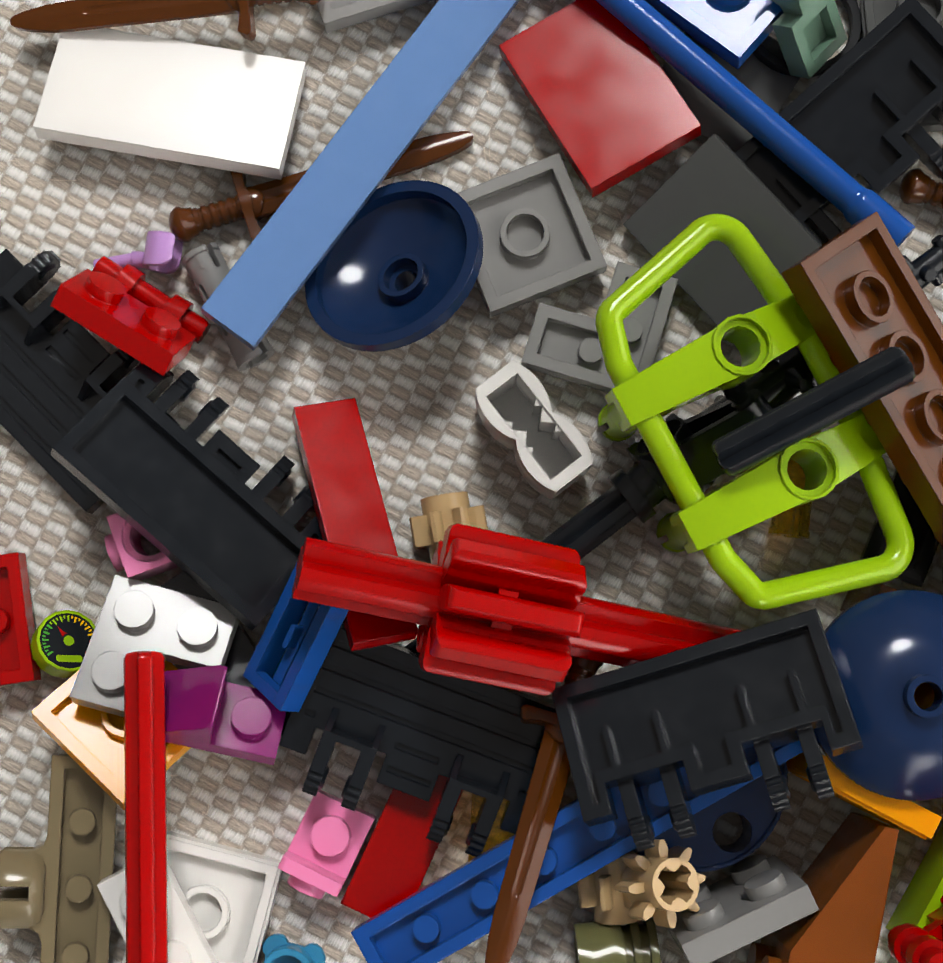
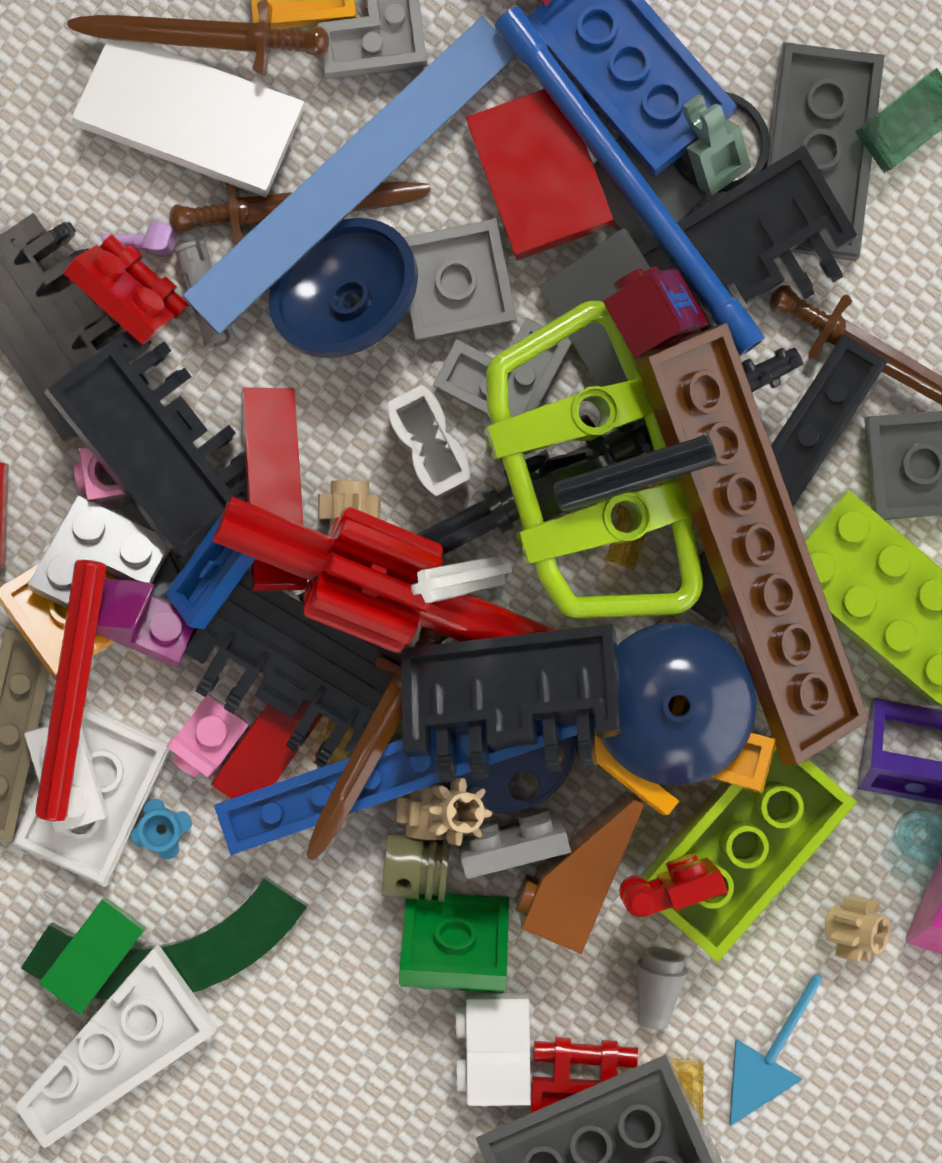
camera: 10 degrees right, 5 degrees up
(62, 643) = (27, 541): tile -> none
(608, 588) = (460, 579): none -> white axle
(781, 213) = (654, 310): none -> dark red brick

